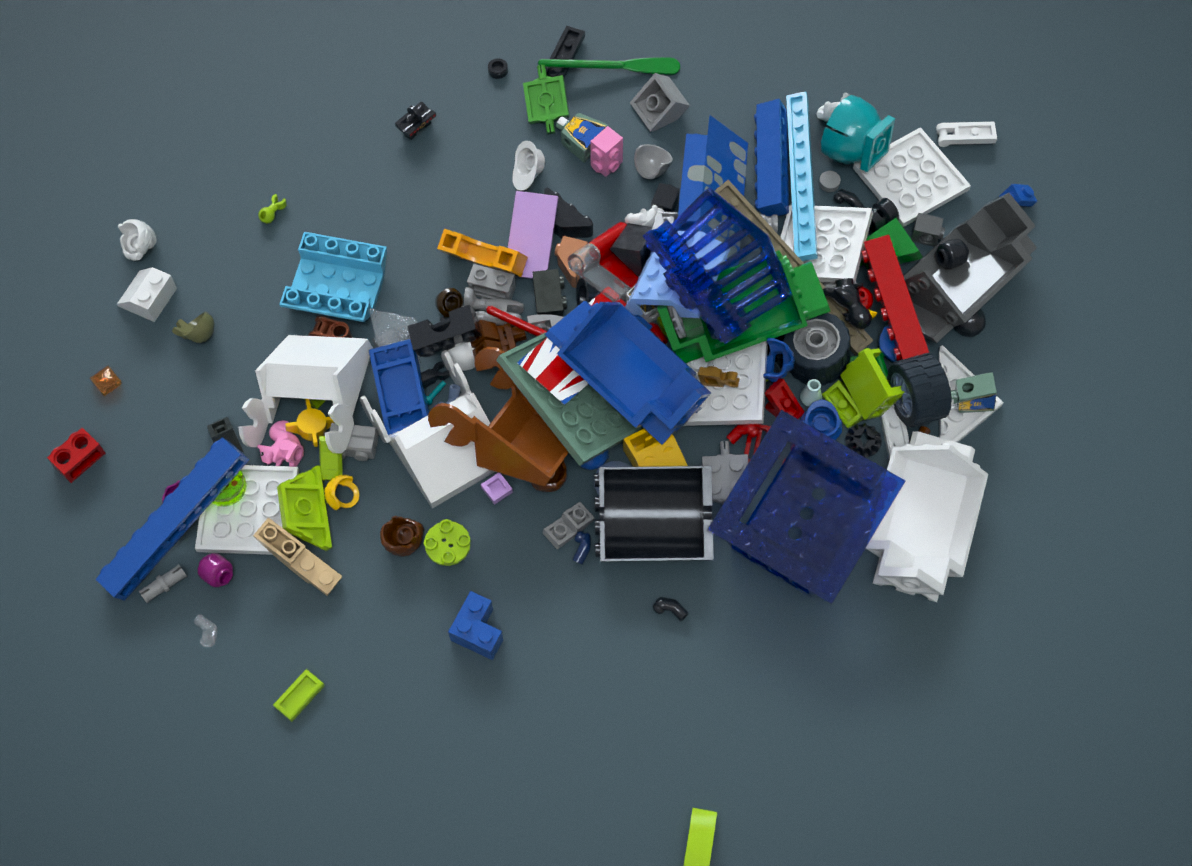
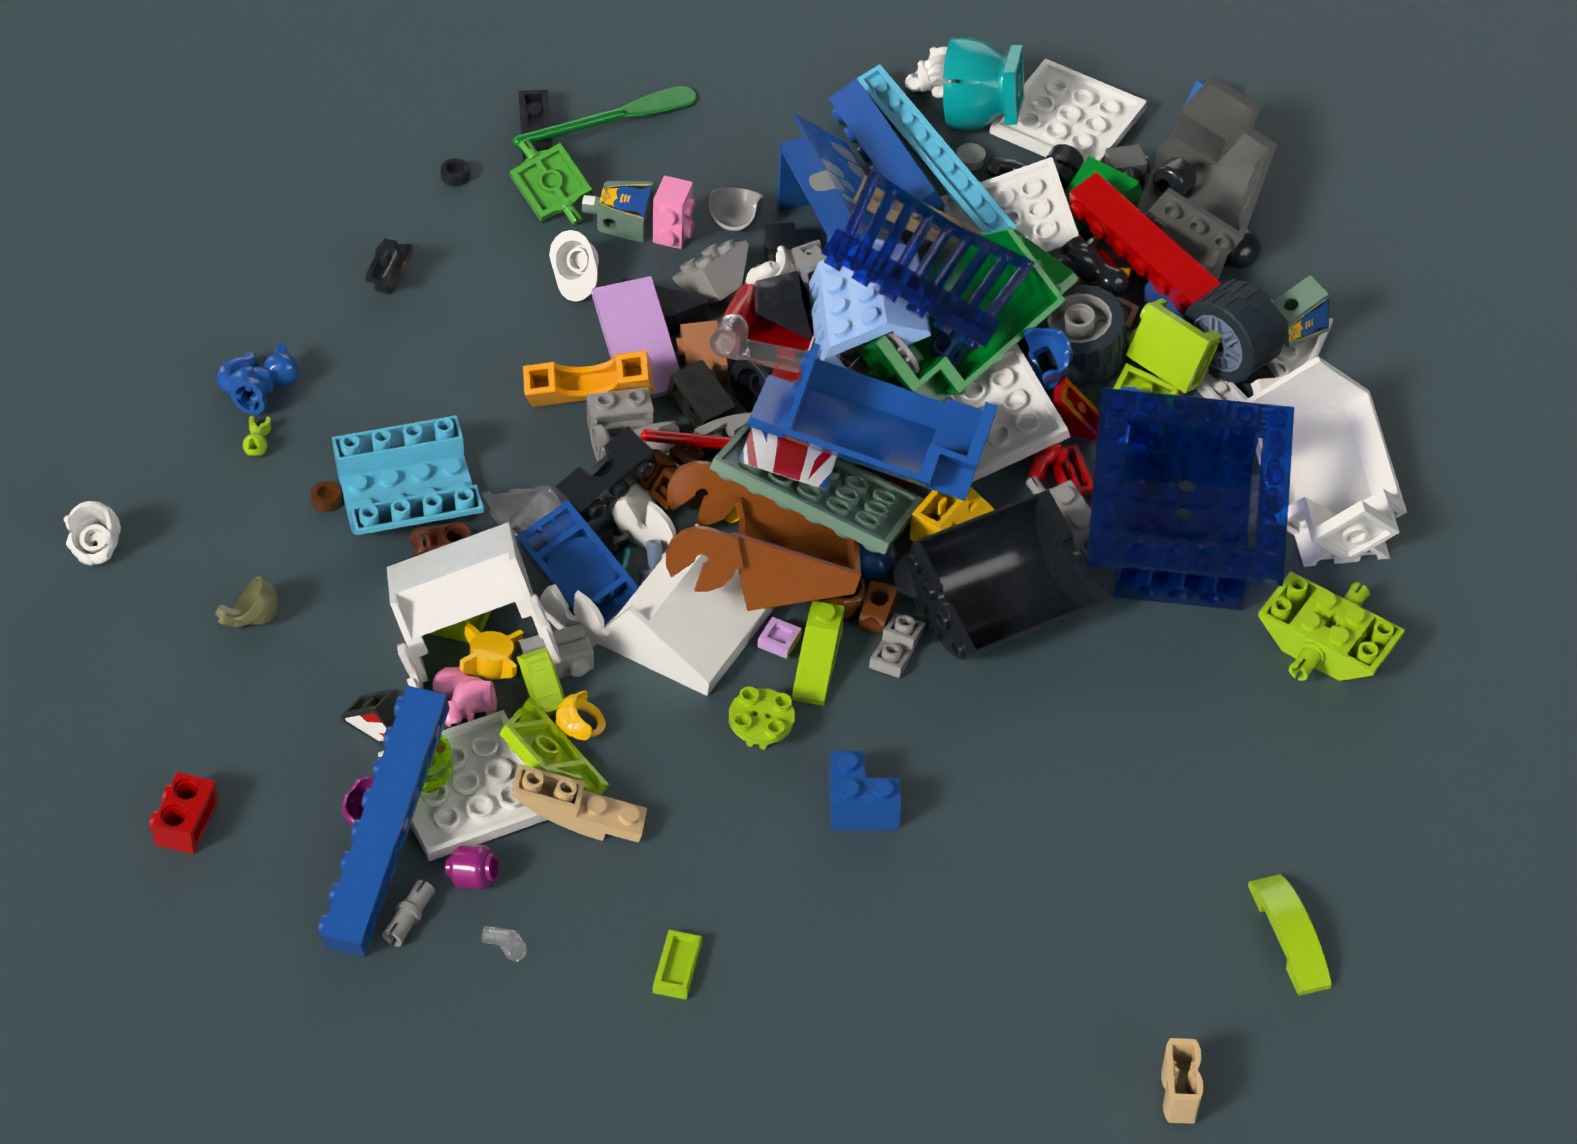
camera: 30 degrees left, 15 degrees down
(106, 380) = (161, 716): clear orange tile -> none
(148, 293) = (150, 591): white slope -> none
(284, 168) = (249, 383): none -> blue animal
(287, 267) = (326, 496): none -> reddish brown tile
(401, 536) = (695, 734): reddish brown hair -> none
(448, 300) = (577, 451): dark brown cone -> none
(513, 511) = (818, 652): none -> lime slope
(569, 494) = (878, 608): none -> reddish brown leg
(584, 547) = (933, 658): dark blue arm -> none
(611, 205) = (716, 272): none -> light grey slope
(659, 102) = (699, 139): light grey slope -> none
(670, 605) = (1083, 680): black arm -> none
(715, 377) = (1001, 397): pearl gold plate -> none
(811, 392) = (1103, 379): light aqua cone -> none
(846, 624) = (1328, 629): none -> lime slope
(966, 133) = (1103, 48): white plate -> none

